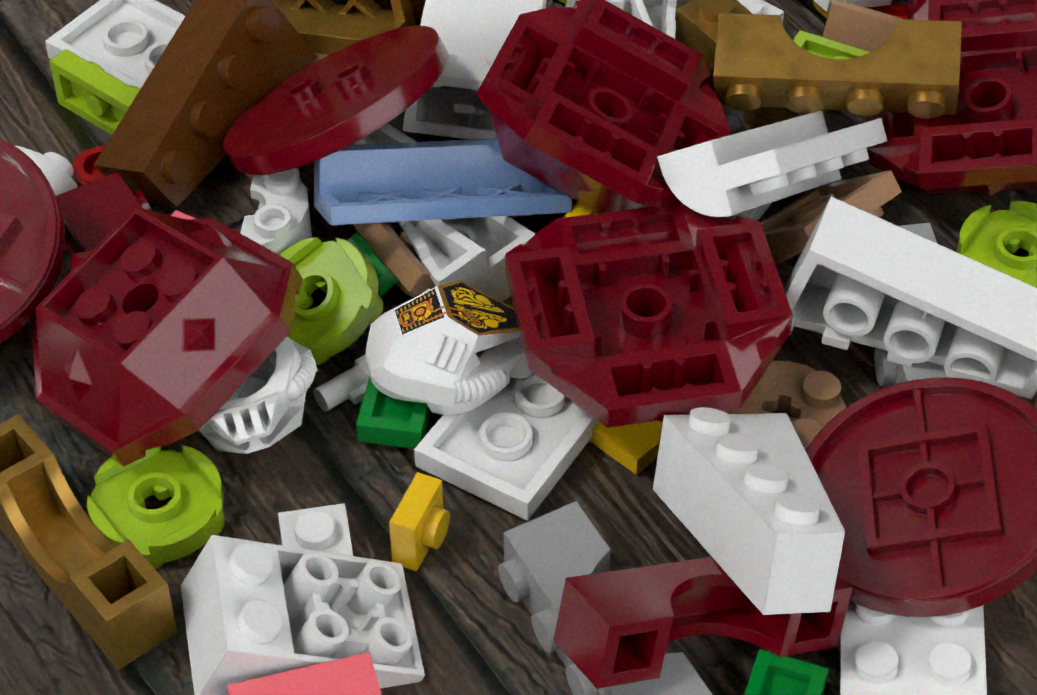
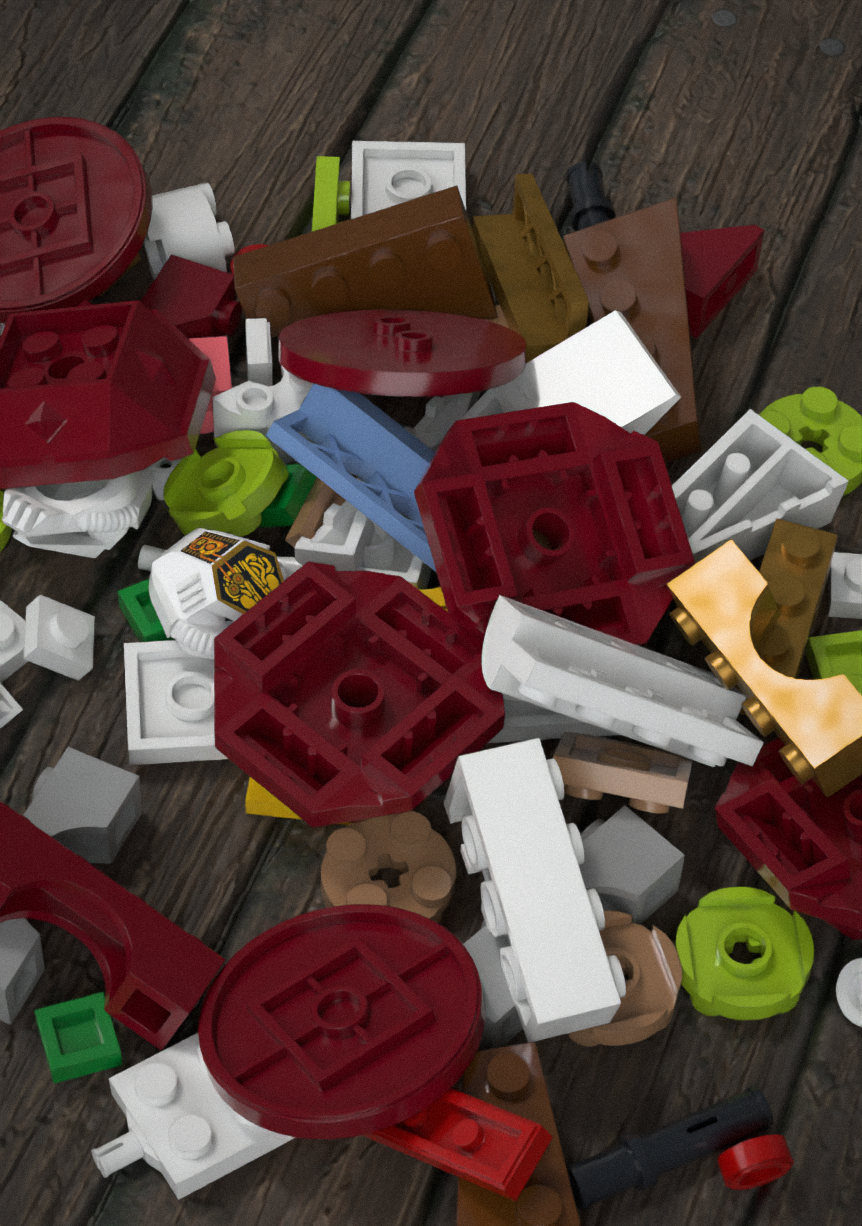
camera: 50 degrees right, 5 degrees up
(202, 202) = (259, 351): none -> white tile
(360, 490) = (59, 637): none -> white plate
(418, 522) = (56, 690): yellow plate -> none
(753, 505) = (206, 891): white wedge -> none

